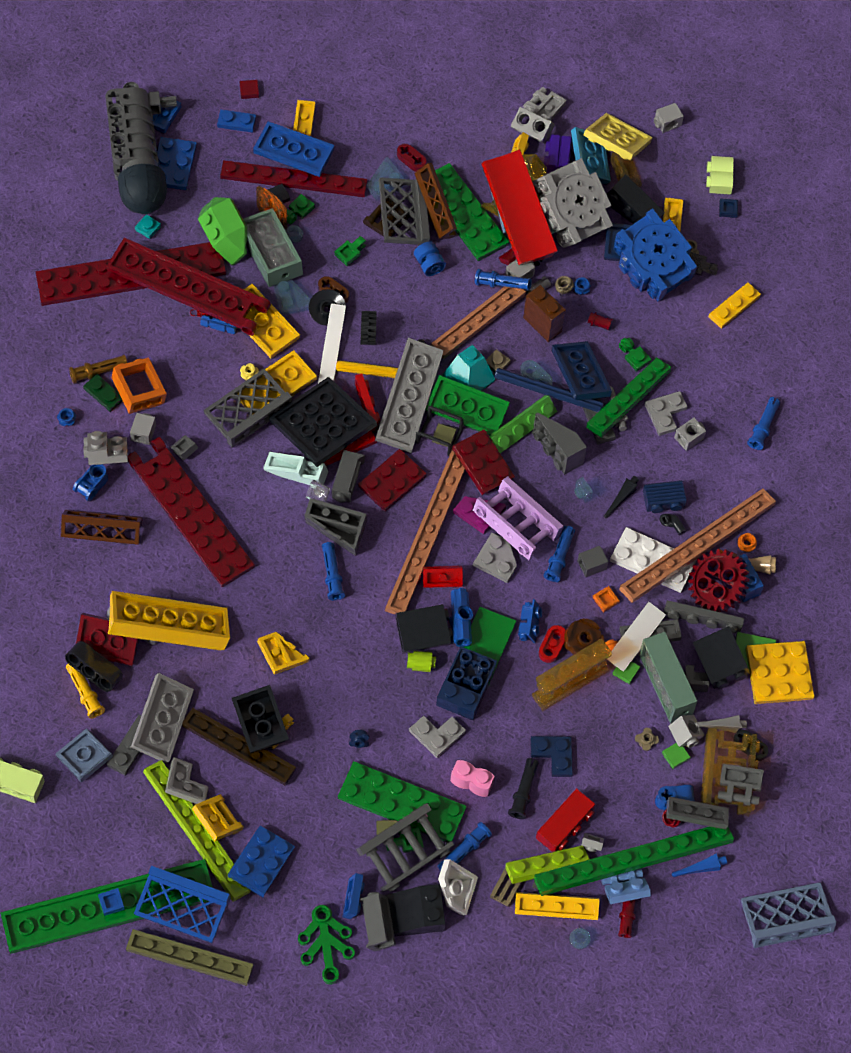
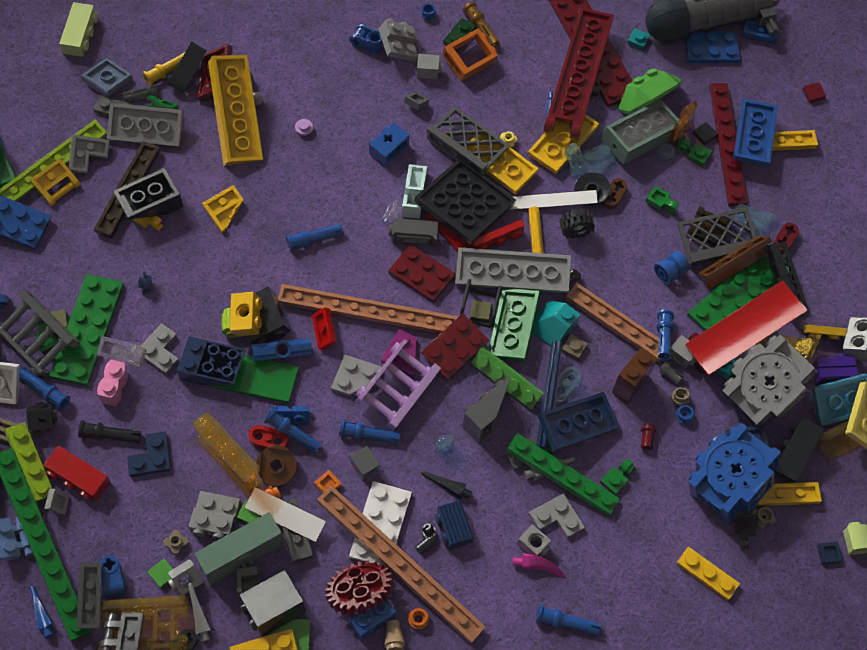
camera: 80 degrees right, 0 degrees up
(101, 519) = (331, 53): reddish brown fence -> none
(113, 723) = (140, 93): none -> dark grey axle
(136, 698) = (162, 103): none -> green plate
(192, 514) = (352, 118): dark red hinge -> none
(193, 562) = (304, 127): none -> lavender plate
(235, 482) = (389, 144): none -> blue brick
(236, 121) = (775, 88): blue plate -> none
(294, 313) = (575, 160): none -> clear light blue plate
(337, 523) = (360, 231): dark grey wedge -> none
(413, 640) = (240, 305): none -> yellow brick
(441, 764) = (121, 351): none -> clear brick
(457, 166) = (779, 272): none -> black fence
(500, 849) = (41, 417): none -> black brick
(547, 622) = (284, 426): none -> blue pin
(625, 702) = (214, 515): none -> light grey plate
(699, 615) = (318, 590): dark grey plate -> none
(707, 442) = (534, 562): none -> dark pink bar

